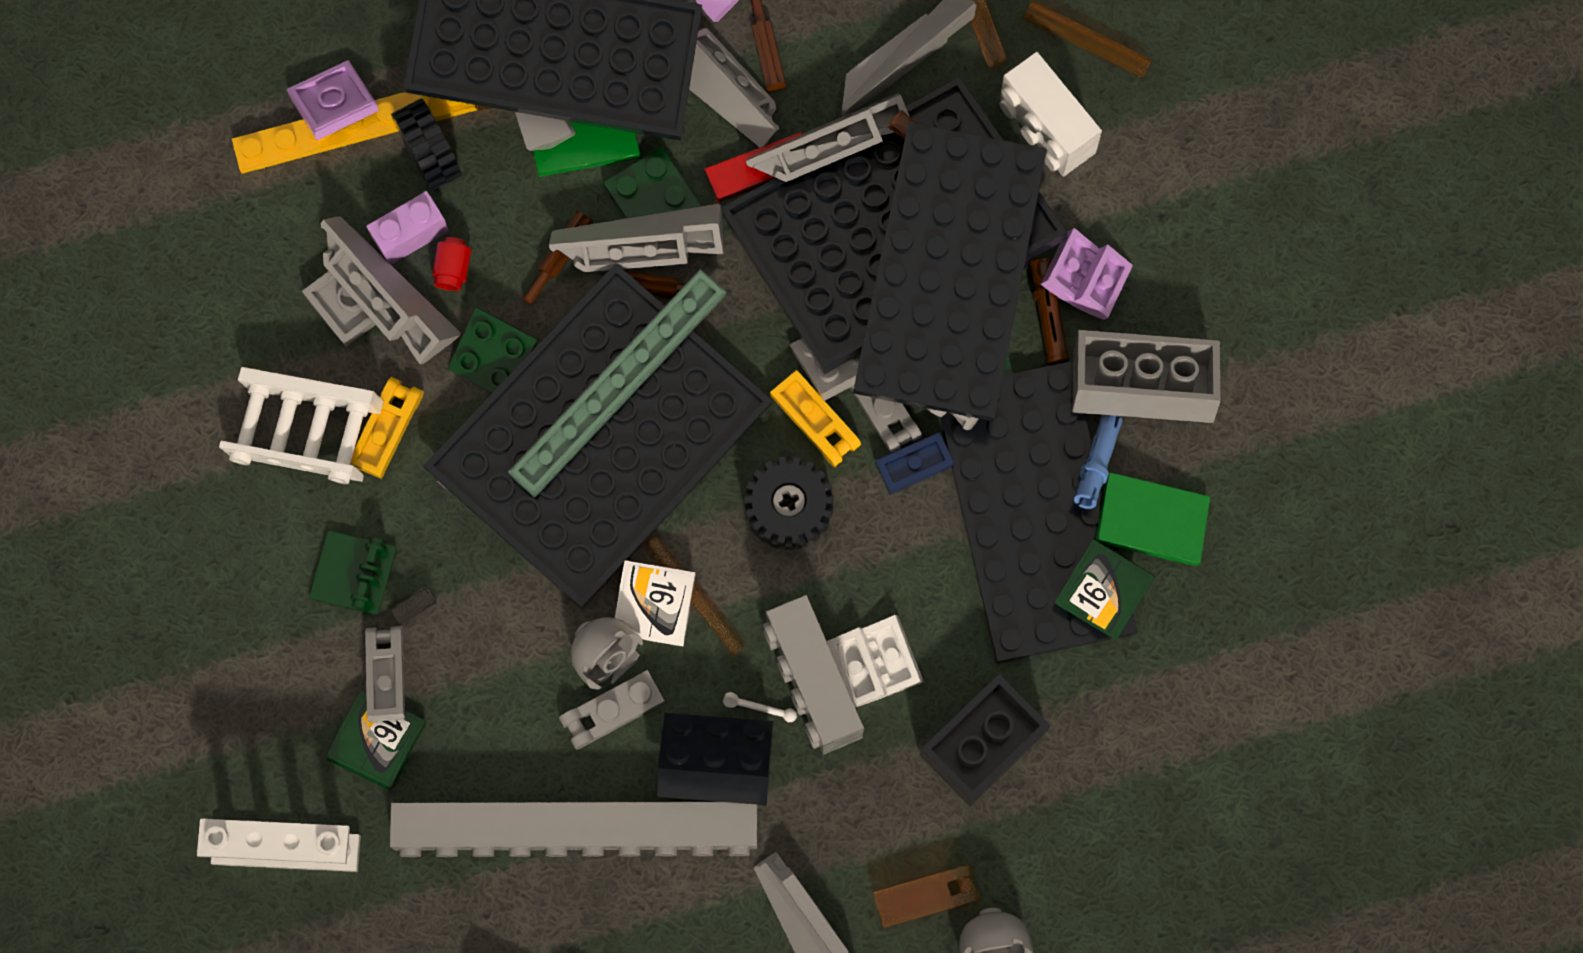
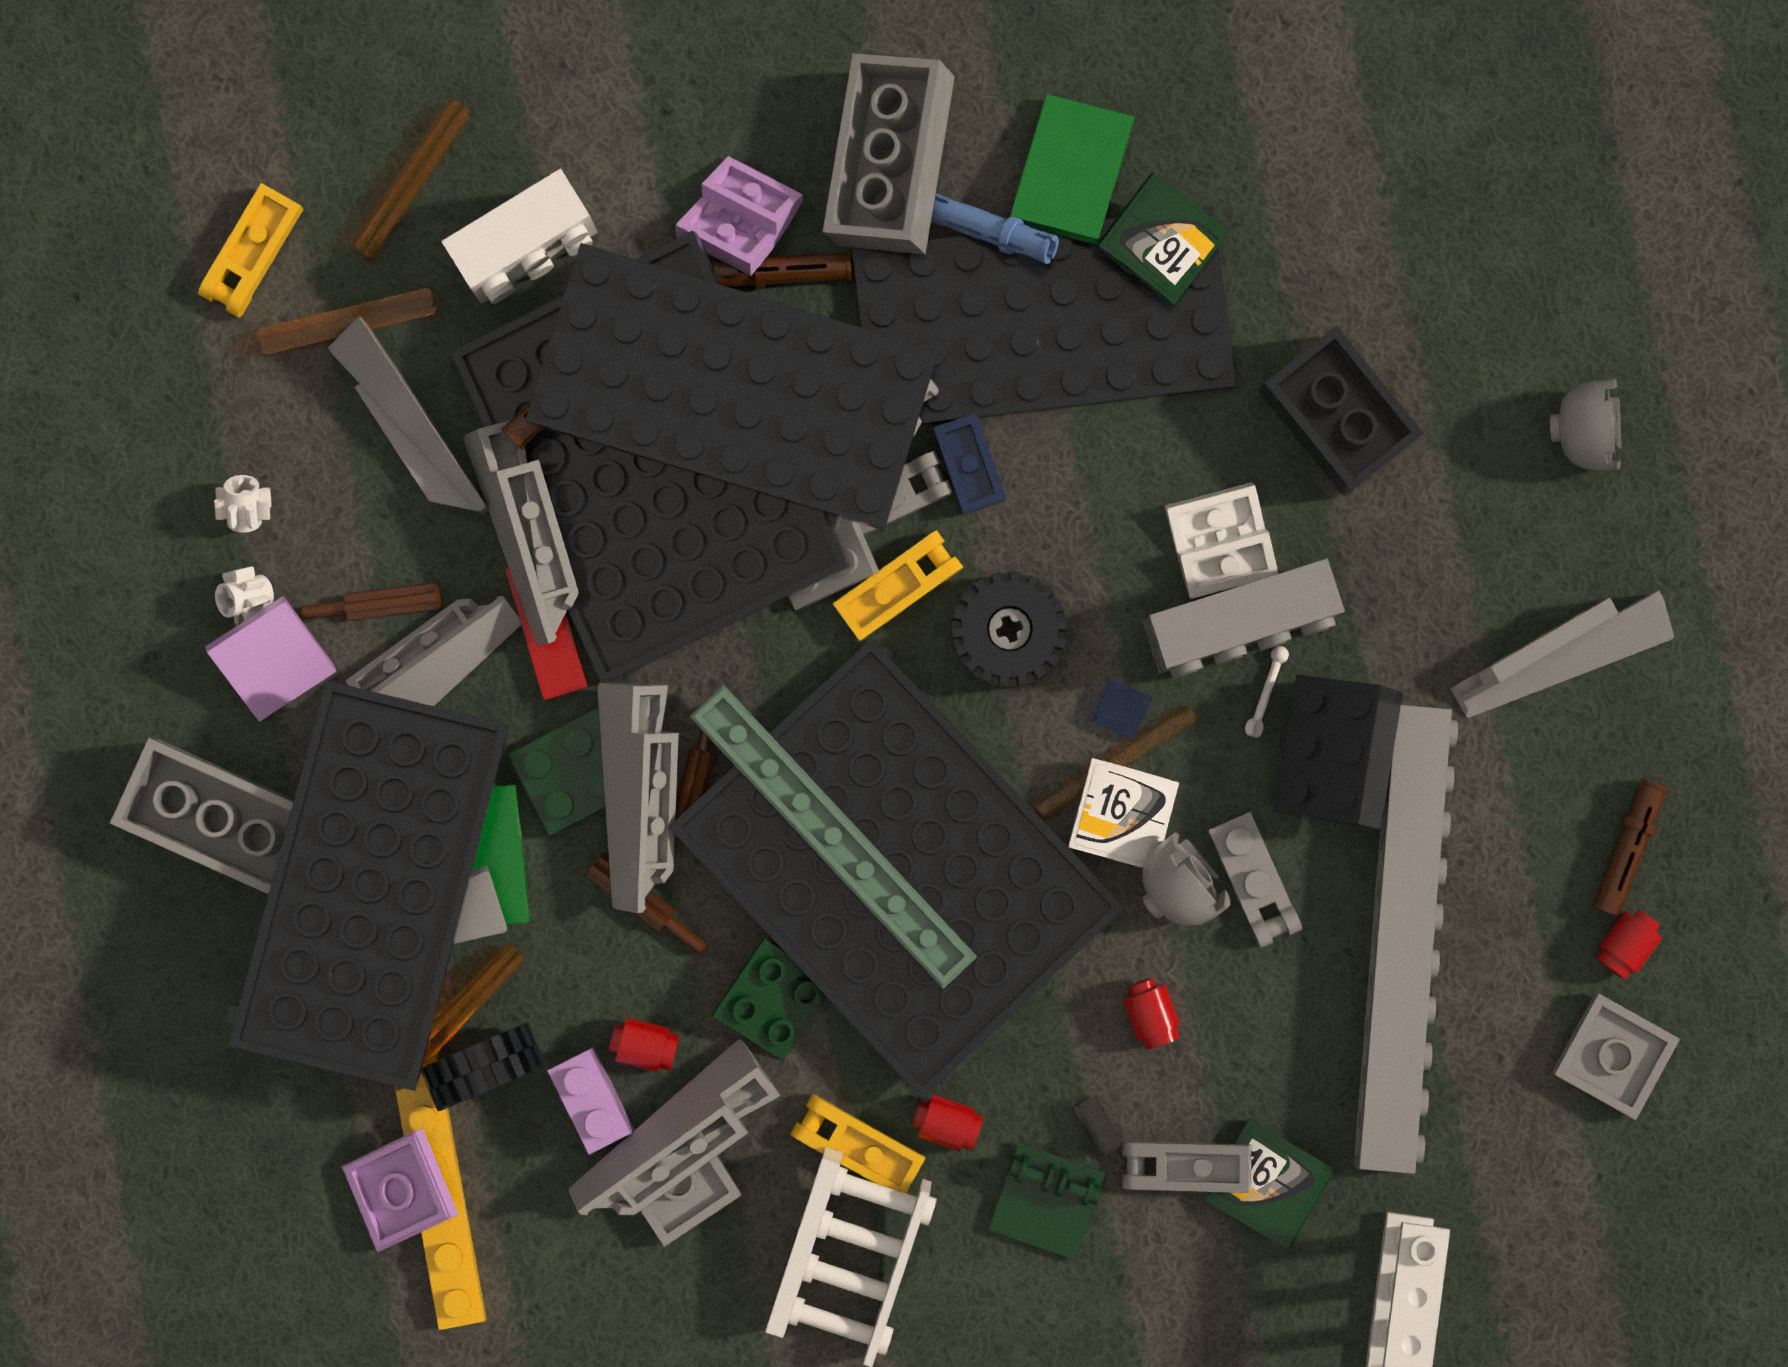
camera: 90 degrees left, 10 degrees up
(407, 491) = (947, 1123): none -> red brick
(472, 133) = (471, 999): none -> clear orange axle
(501, 637) = (1151, 1013): none -> red brick
(736, 596) = (1121, 709): none -> clear blue tile
(925, 896) = (1524, 506): clear orange plate -> none

